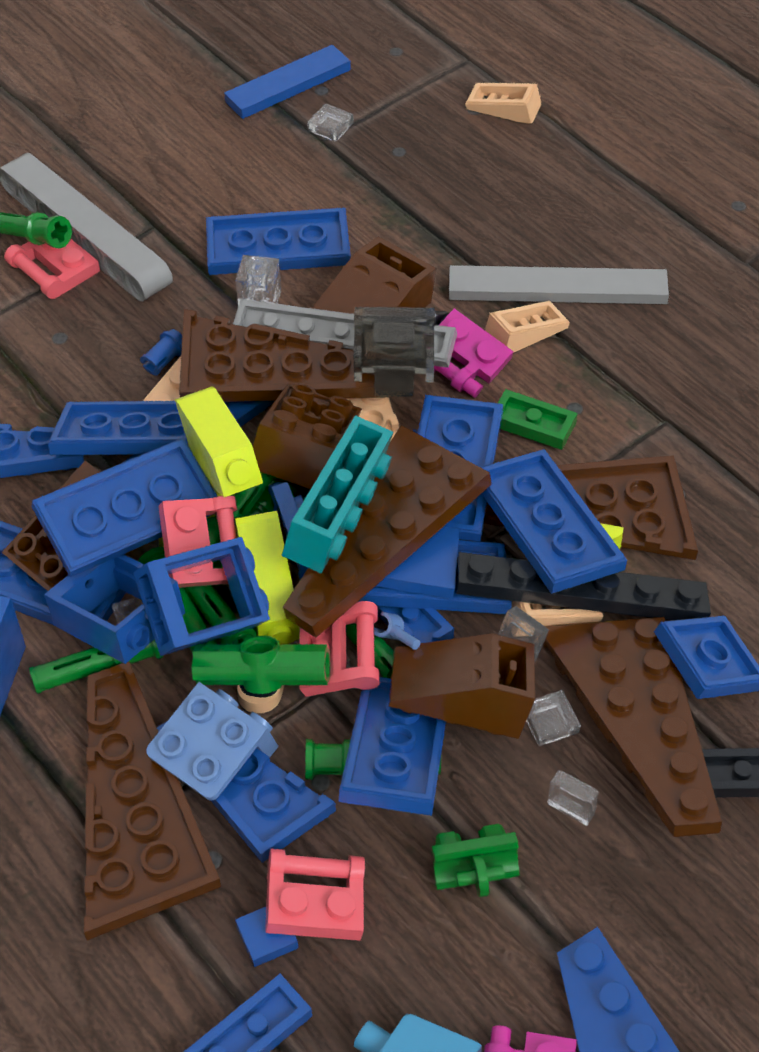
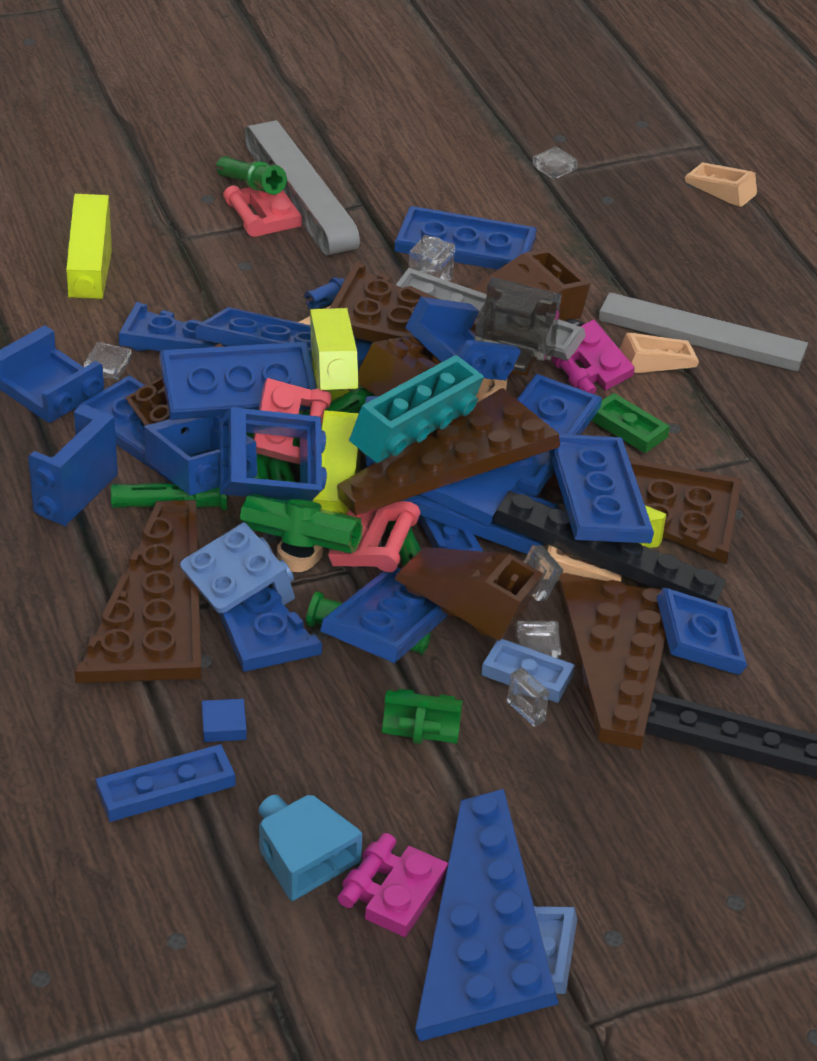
camera: 15 degrees right, 10 degrees down
(287, 81) = (531, 123): blue tile -> none
(315, 908) = (272, 711): coral plate -> none
(322, 382) = (446, 332): none -> blue panel
(396, 631) = (429, 536): medium blue hand -> none
(540, 757) = (547, 670): none -> medium blue plate

